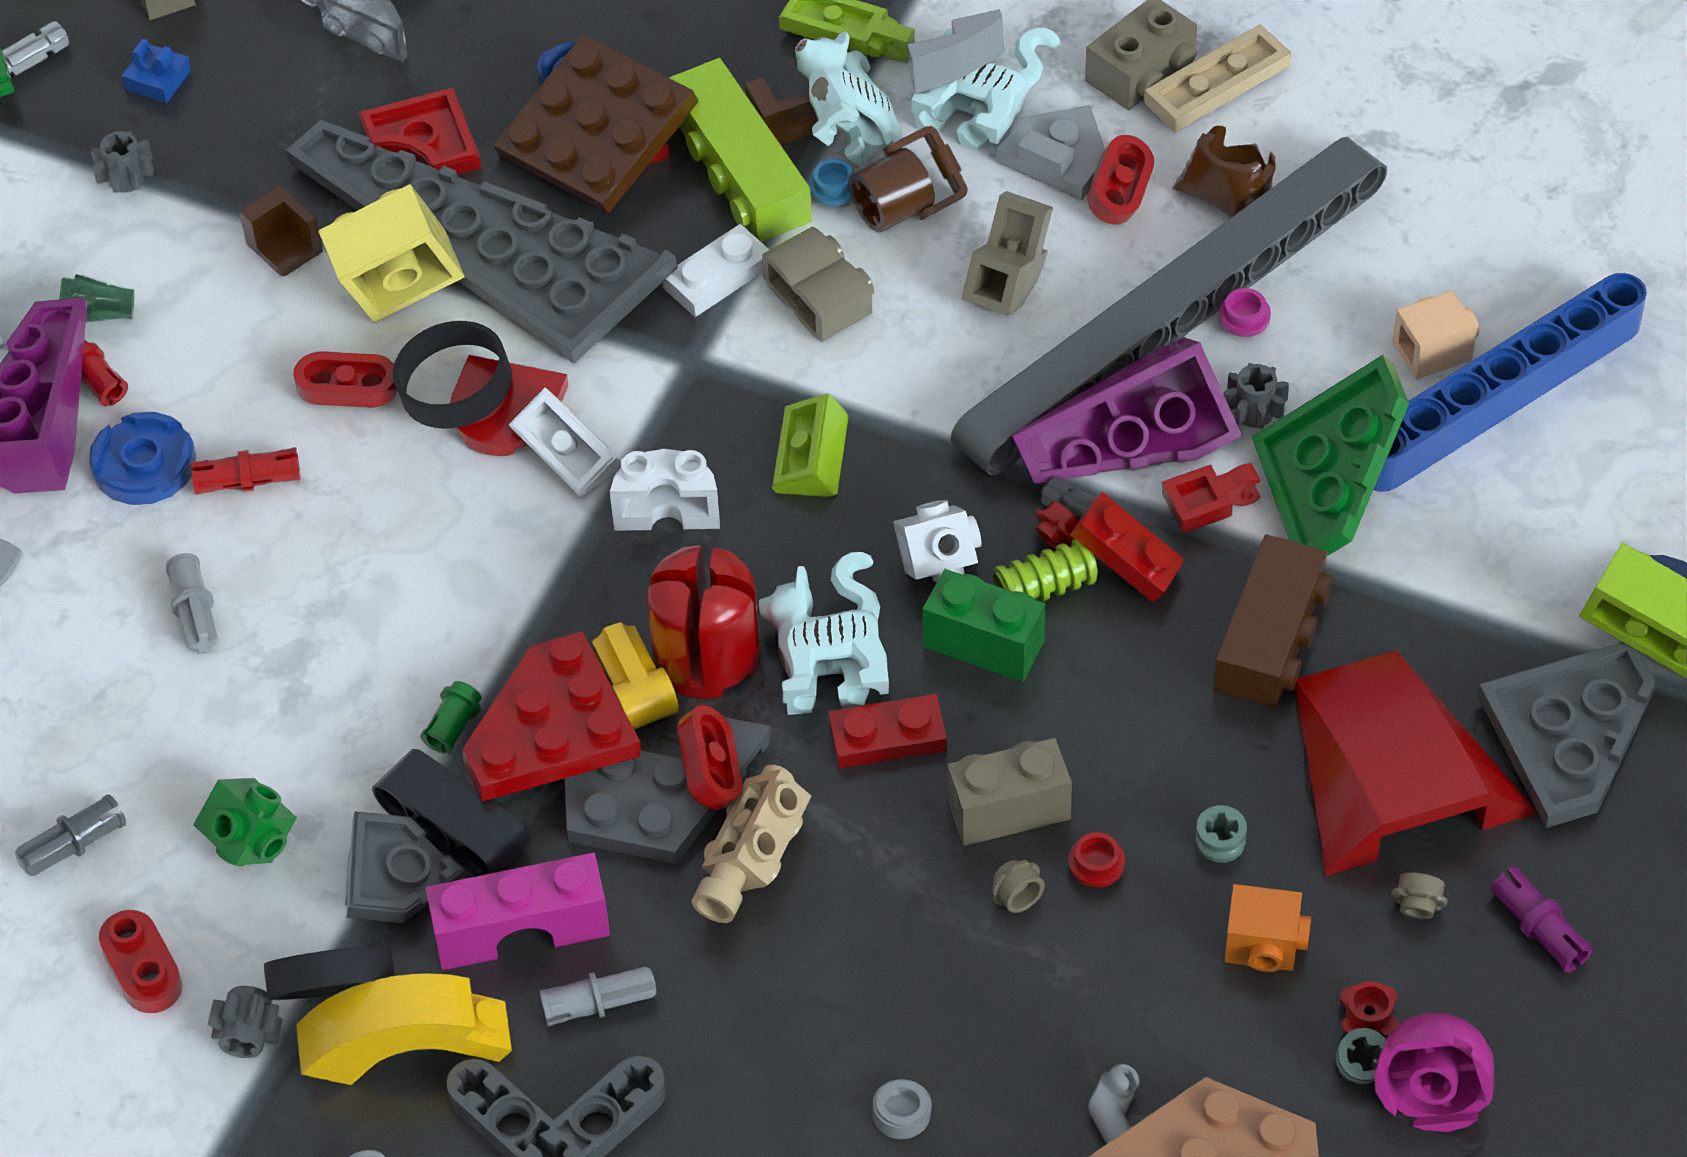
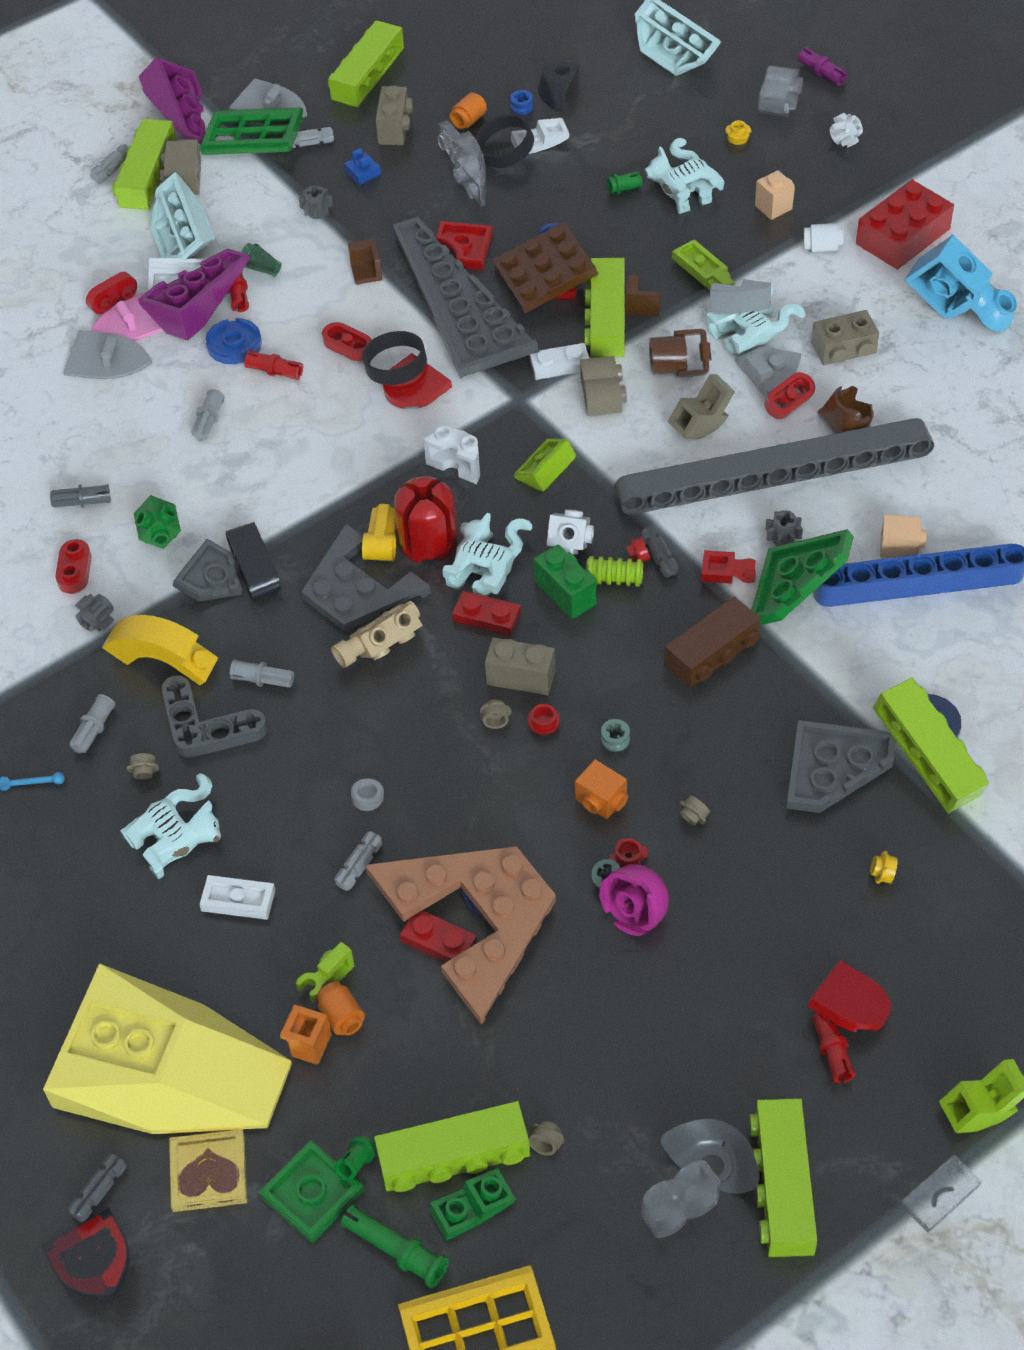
camera: 30 degrees right, 0 degrees up
(326, 972) = (138, 603): black tyre -> none
(391, 253) = (399, 288): light yellow brick -> none
(451, 717) = (284, 517): green pin -> none
(549, 722) = (323, 537): red plate -> none
(550, 896) = (271, 619): dark pink arch -> none
(565, 443) = (426, 408): white slope -> none
(709, 758) = (382, 591): red plate -> none
(830, 182) = (640, 340): dark azure plate -> none
(846, 97) = (671, 302): light aqua animal -> none
(1112, 1100) = (469, 837): light grey arm -> none
(1127, 547) = (662, 574): red plate -> none
(1138, 417) = (717, 515): magenta wedge -> none
(1217, 78) = (877, 365): tan plate -> none
(1244, 313) = (809, 486): dark pink plate -> none
(1391, 760) = (730, 735): red wedge -> none
(1541, 919) = (750, 852): magenta pin -> none

